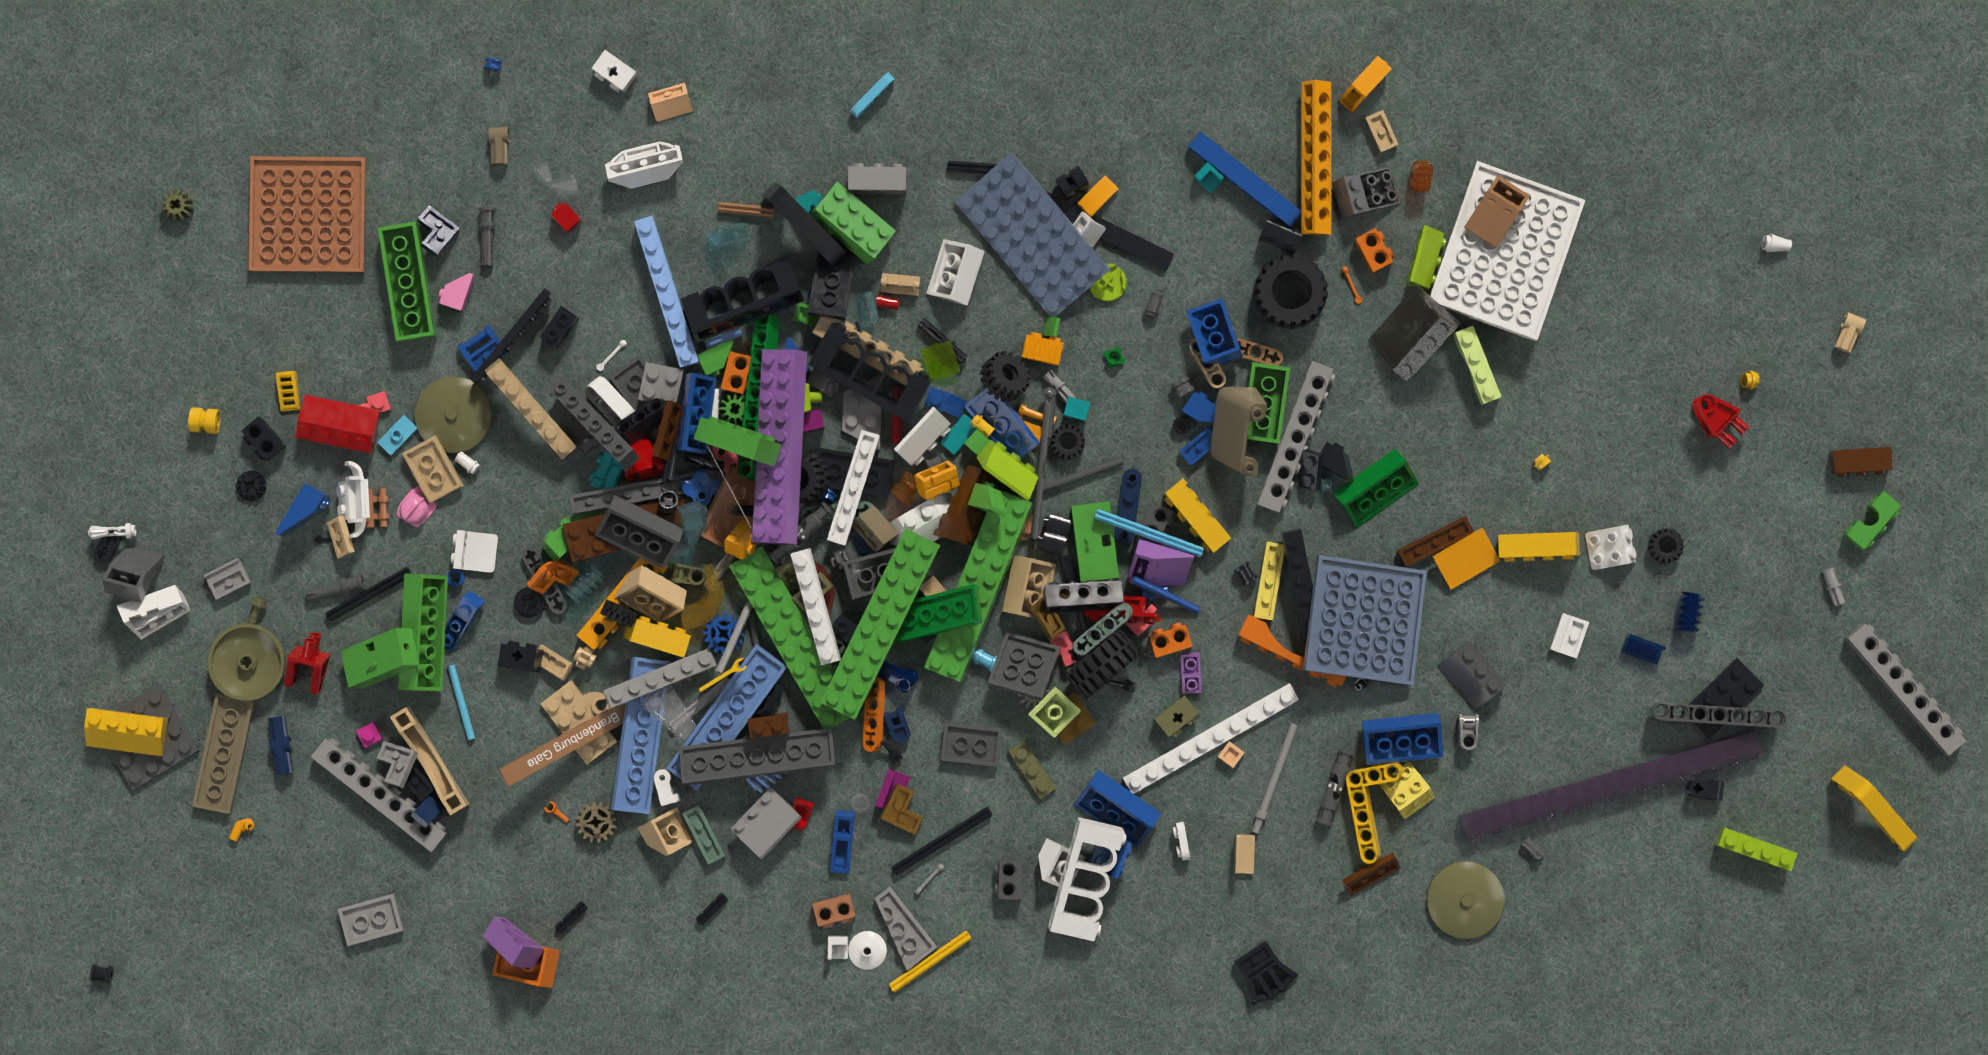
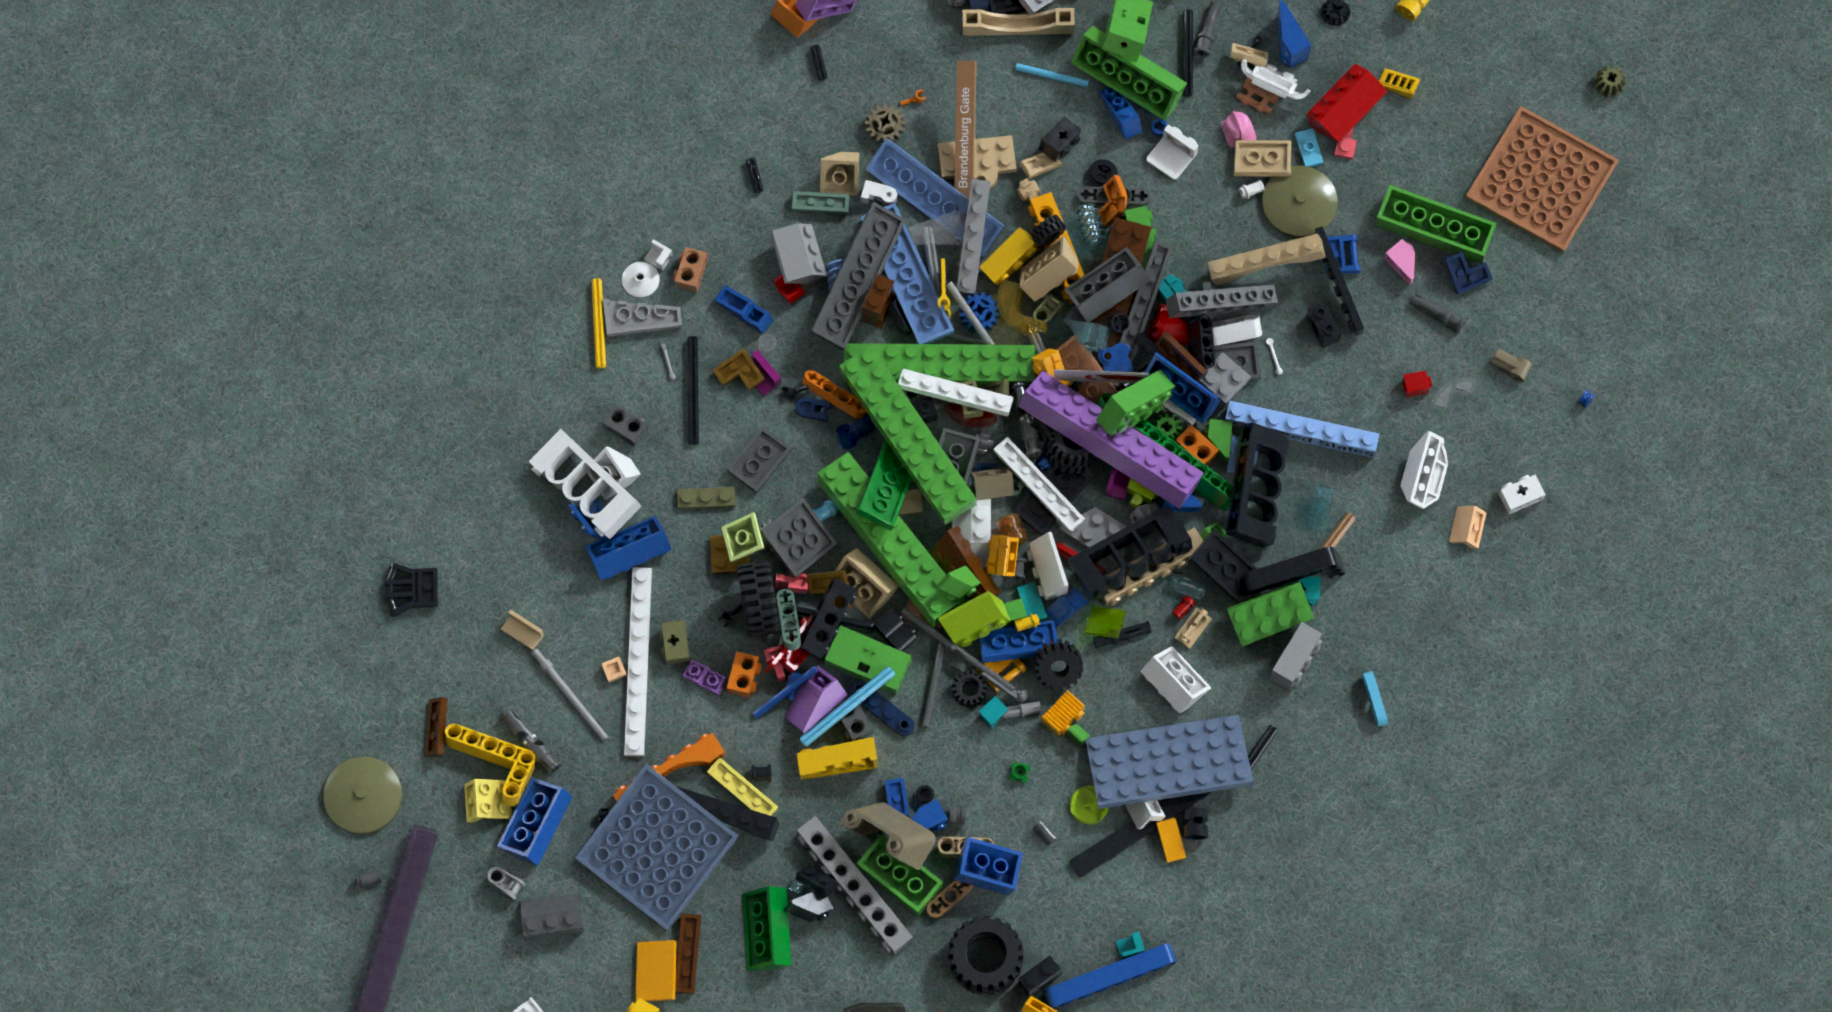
camera: 120 degrees right, 15 degrees down
(266, 435) = (1370, 44): black brick -> none
(1180, 833) = (559, 582): white plate -> none

